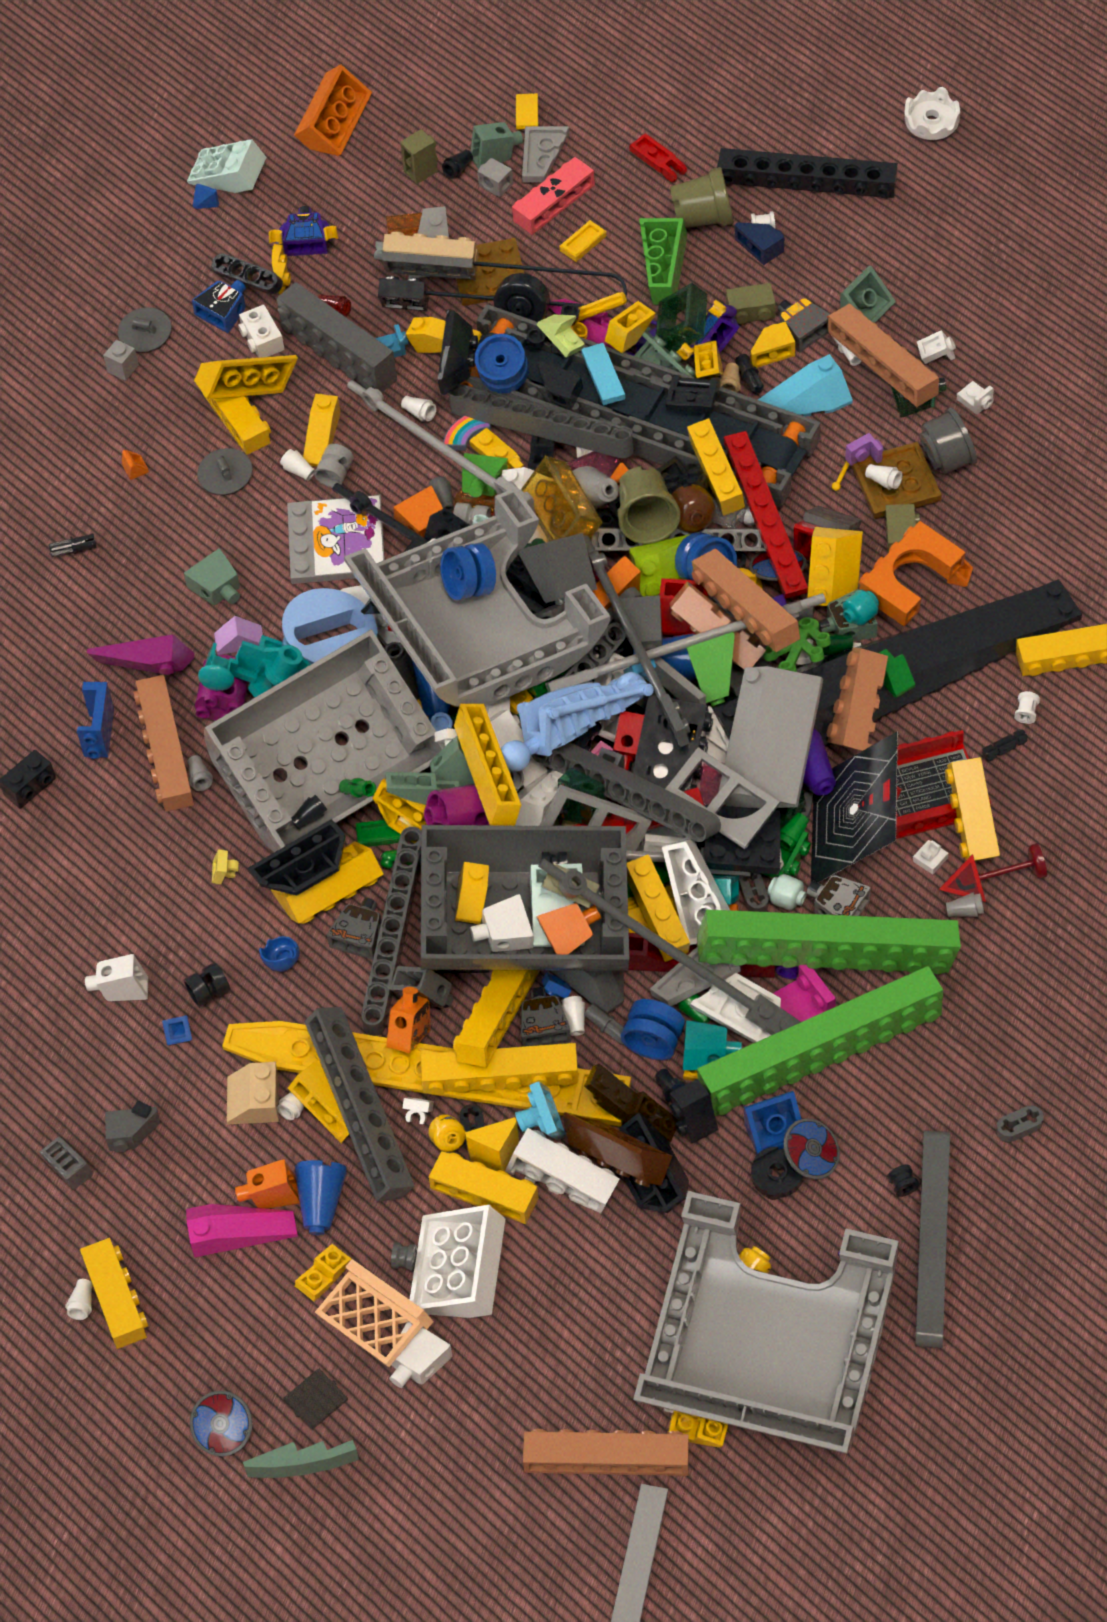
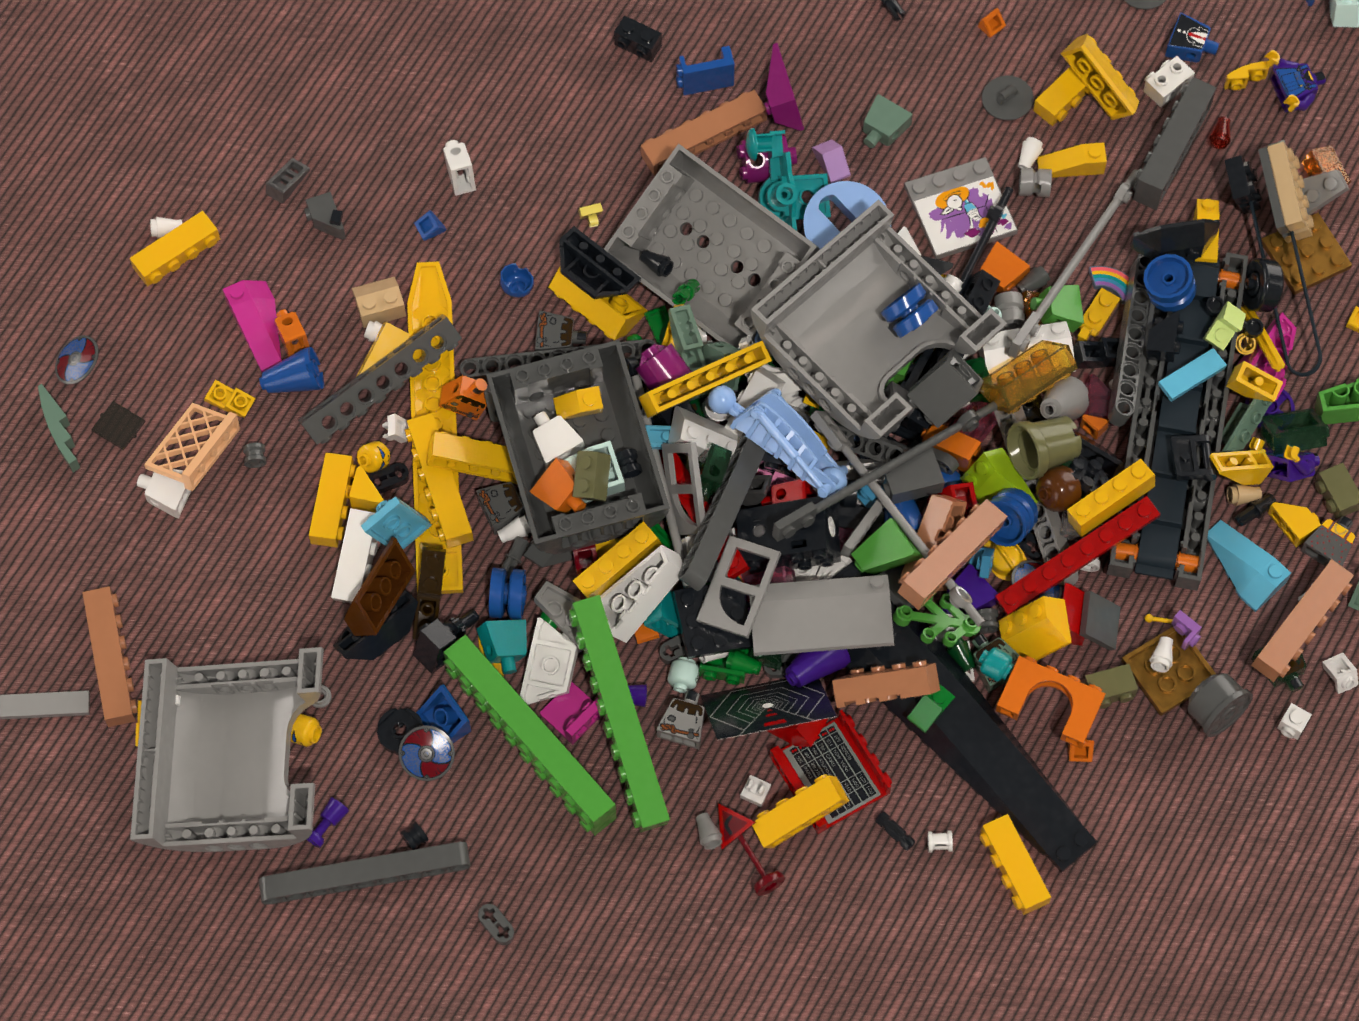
camera: 70 degrees right, 10 degrees up
(199, 990) = (470, 232): black wheel -> none
(247, 273) = (1233, 49): black beam -> none
(395, 341) = (1190, 191): dark azure bracket -> none
(420, 408) = (1123, 237): white cone -> none
(458, 1262) = (257, 498): white slope -> none
(761, 1010) = (544, 676): dark grey bar -> none

